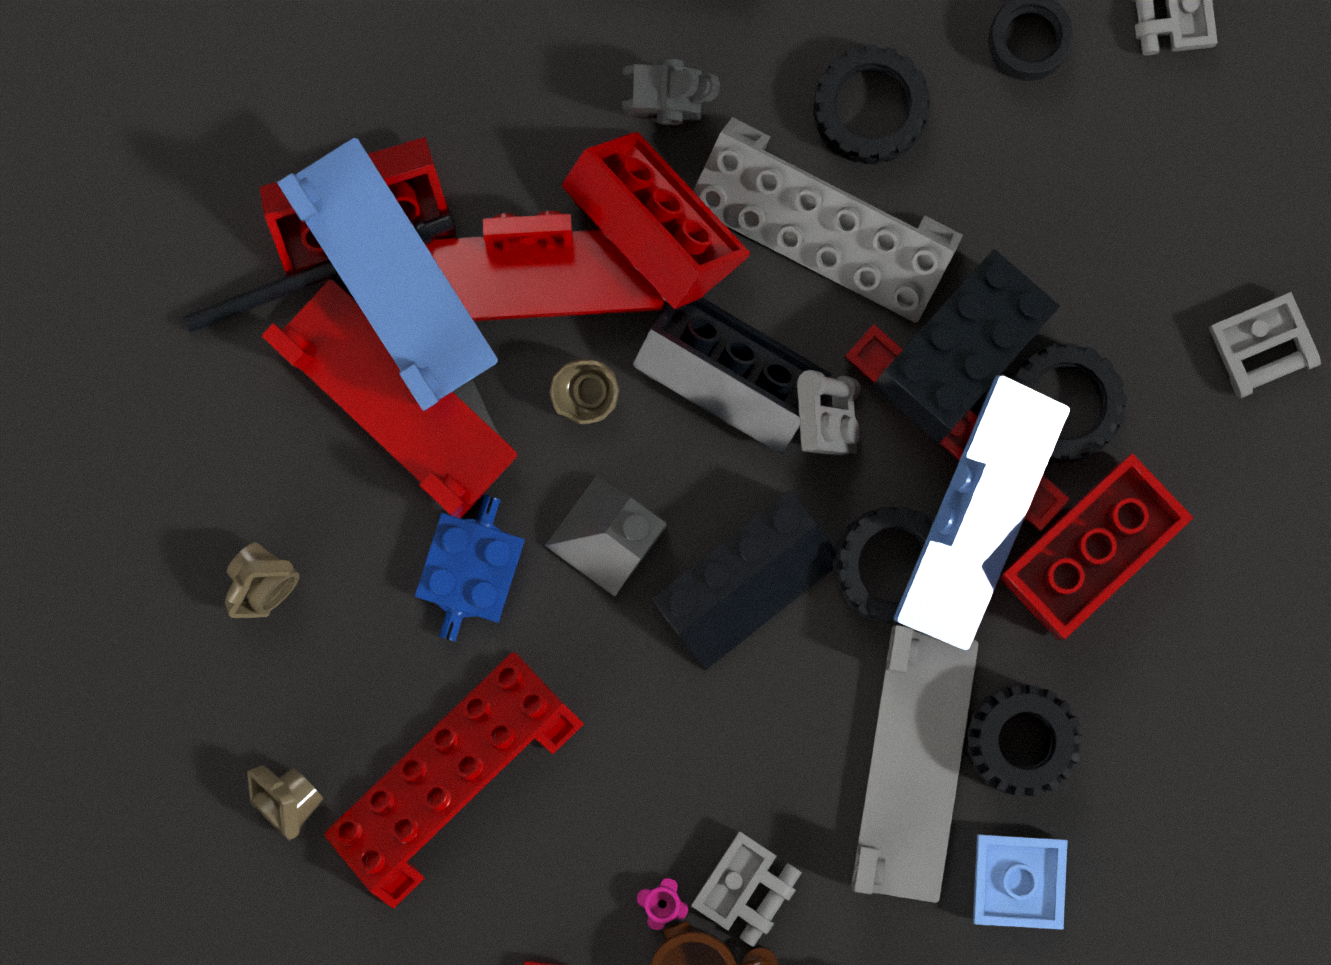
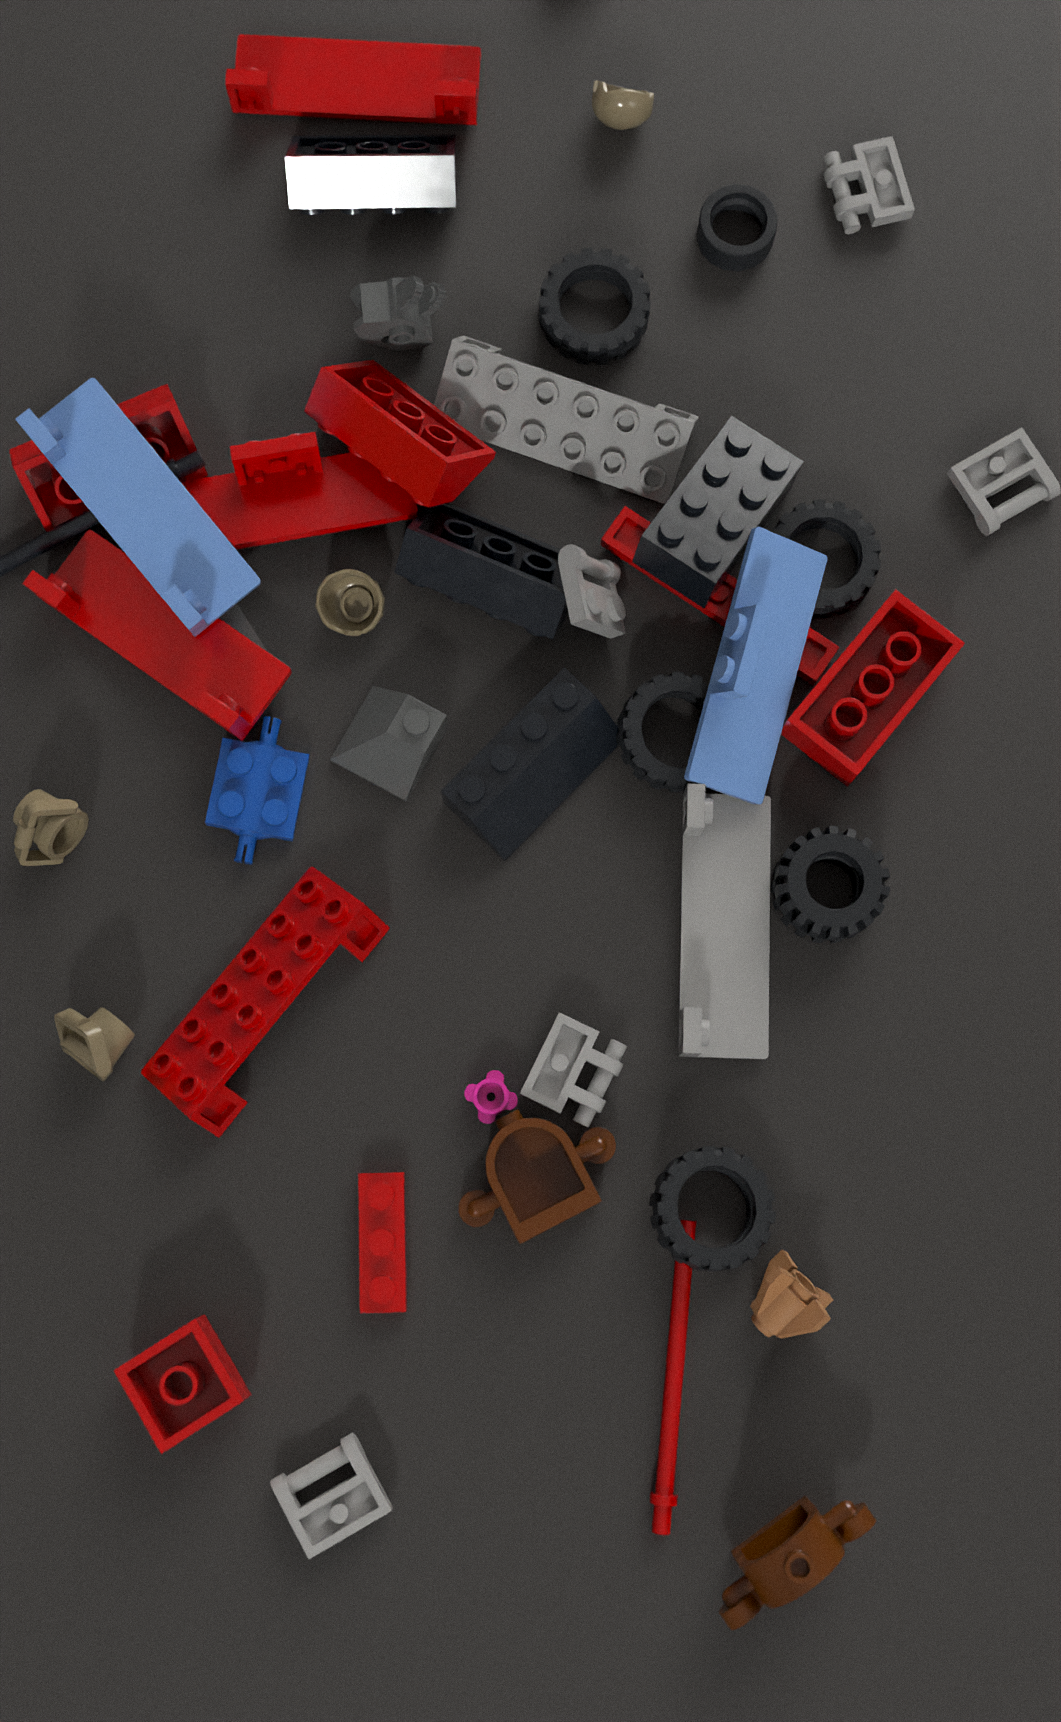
camera: 10 degrees left, 5 degrees down
(1020, 881) = (846, 1026): light blue plate -> none

